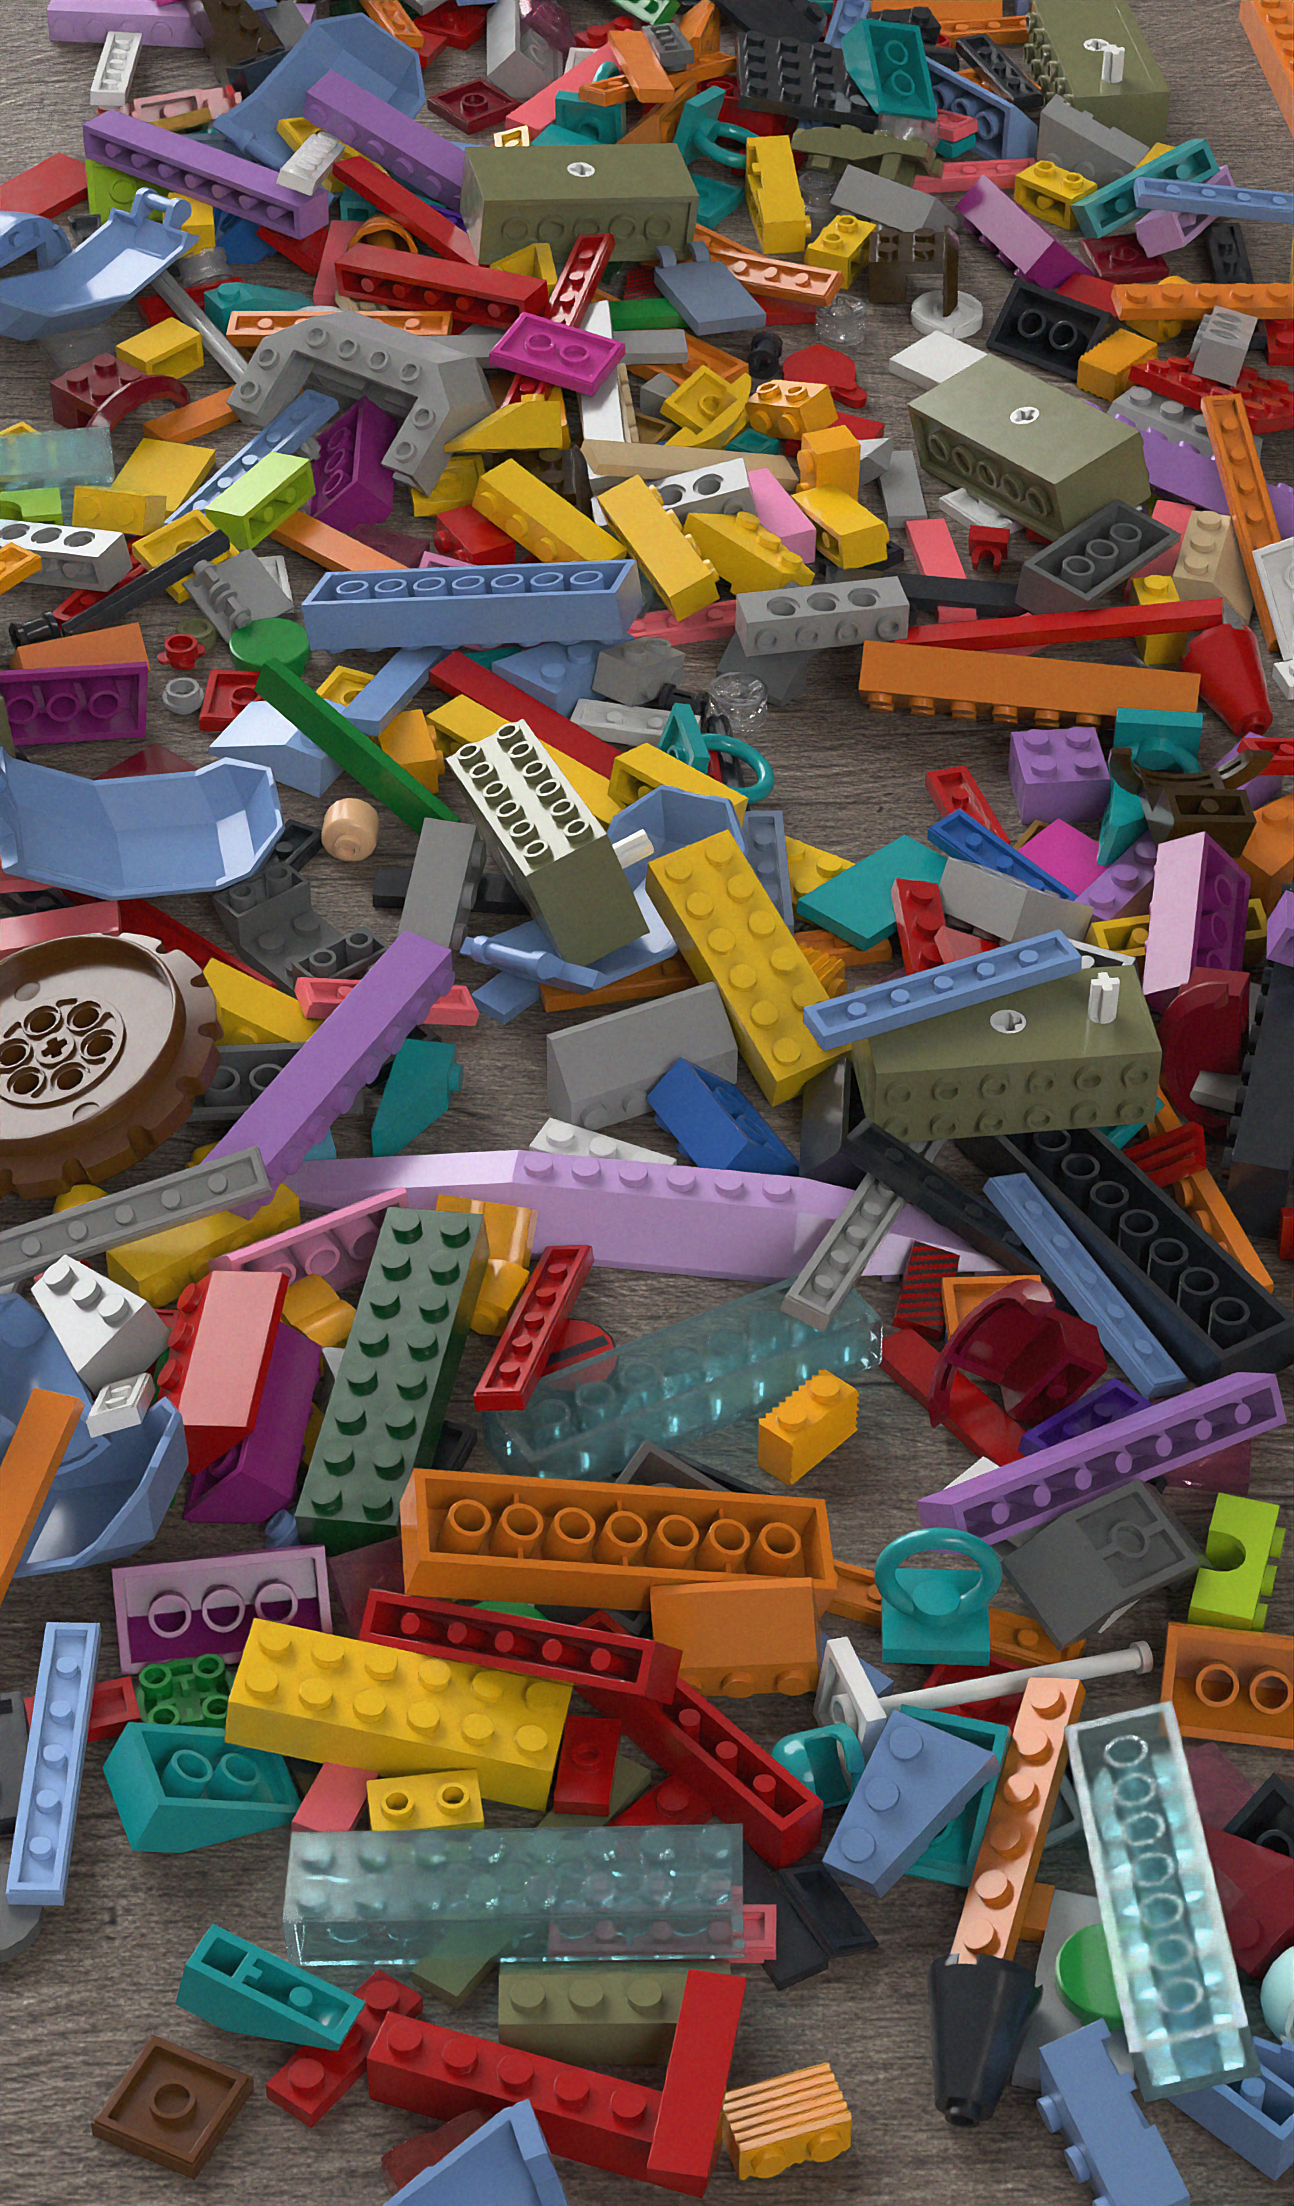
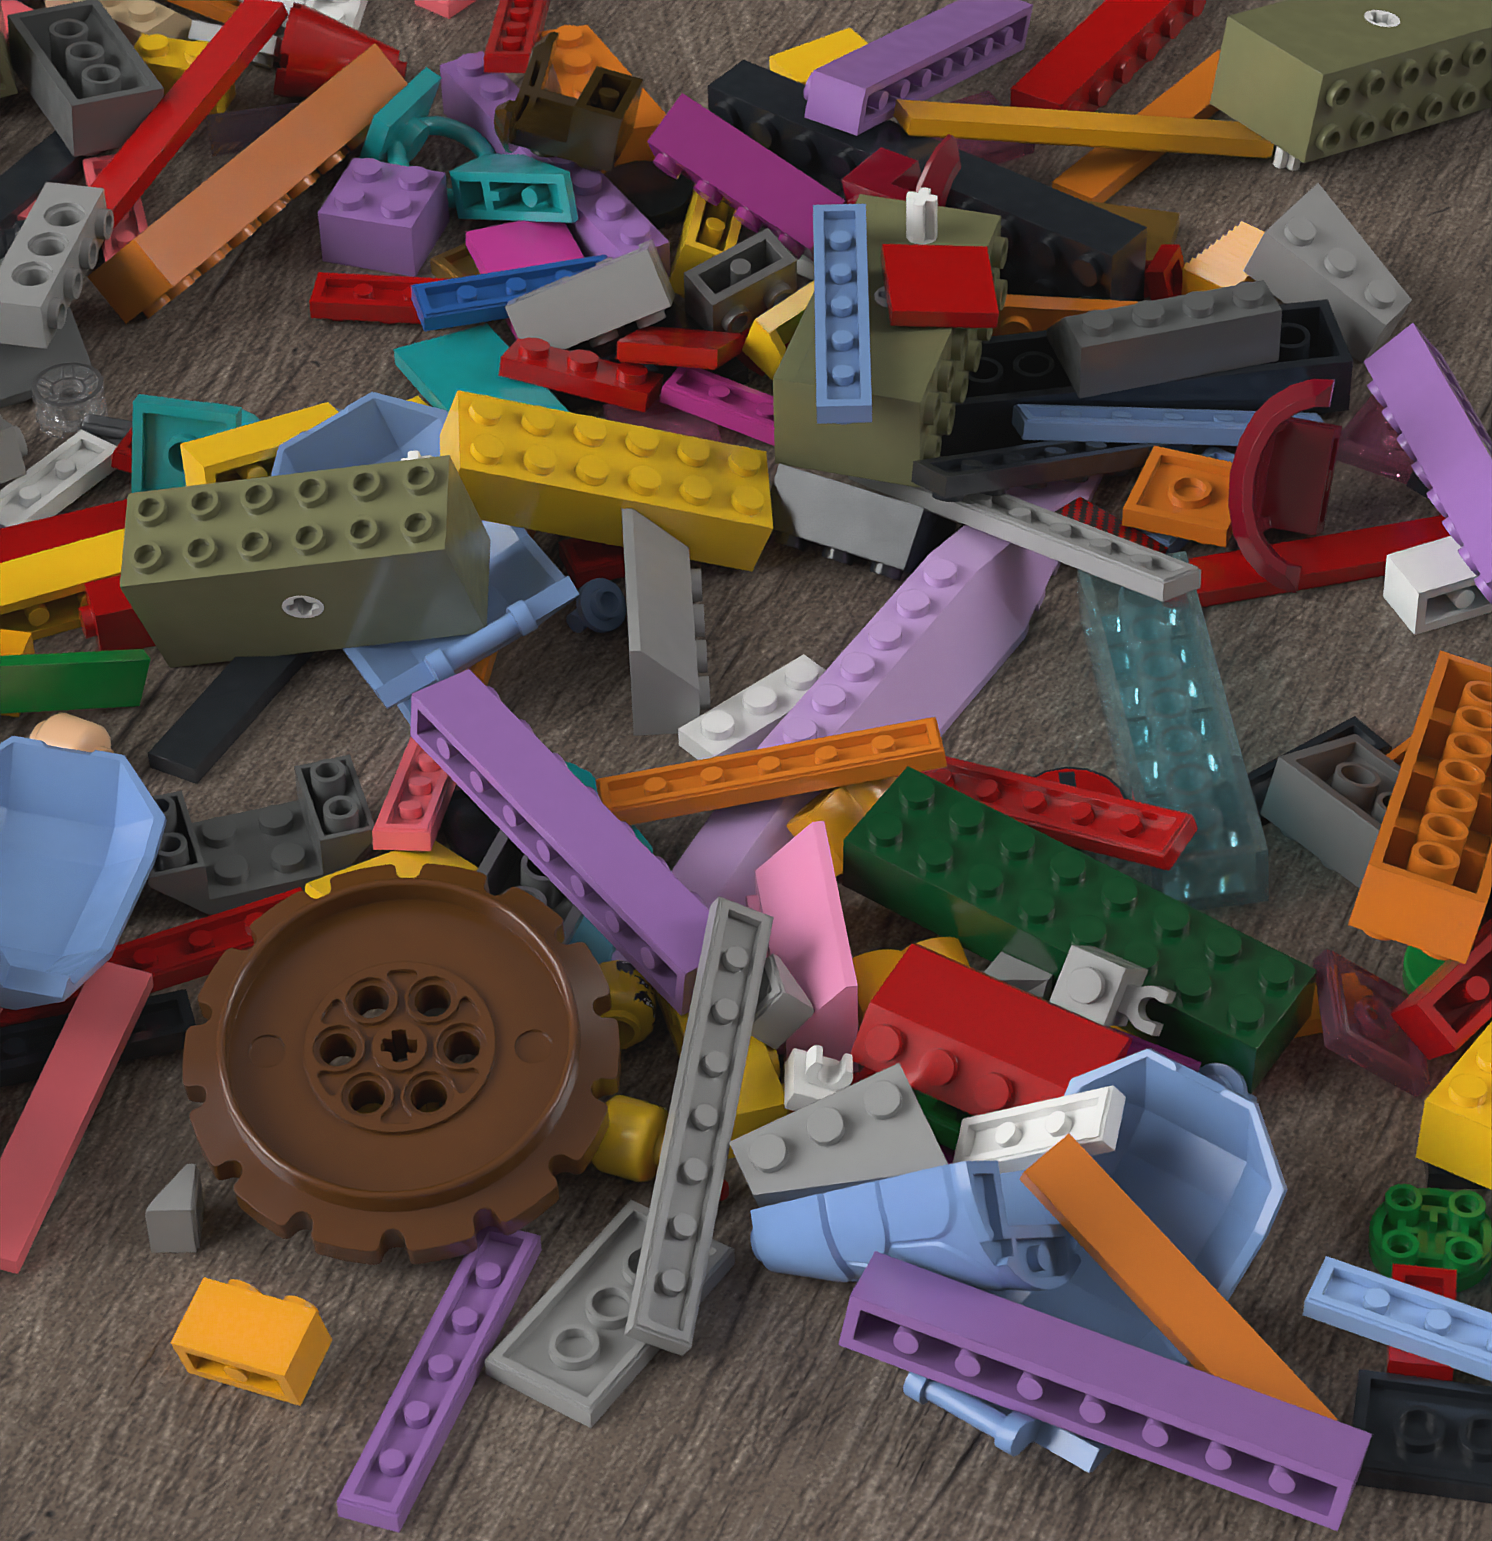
camera: 65 degrees left, 0 degrees up
(160, 1286) = (814, 1076): none -> white tile
(210, 1602) = (1334, 1152): slope -> none
(219, 1233) = (780, 1005): none -> light grey slope
(295, 1397) = (1107, 989): none -> light grey brick
(444, 883) = (267, 691): light grey wedge -> none
(471, 1160) = (773, 772): none -> orange tile
(670, 695) = (47, 436): black bush -> none
(717, 1123) = (787, 608): blue slope -> none
(807, 1427) = (1267, 669): light orange brick -> none
(1023, 1036) = (939, 286): none -> red tile
(1090, 1412) = (1373, 495): dark purple plate -> none
(1147, 1227) = (1168, 338): none -> dark grey slope
(1167, 1148) = (1053, 284): red tile -> none

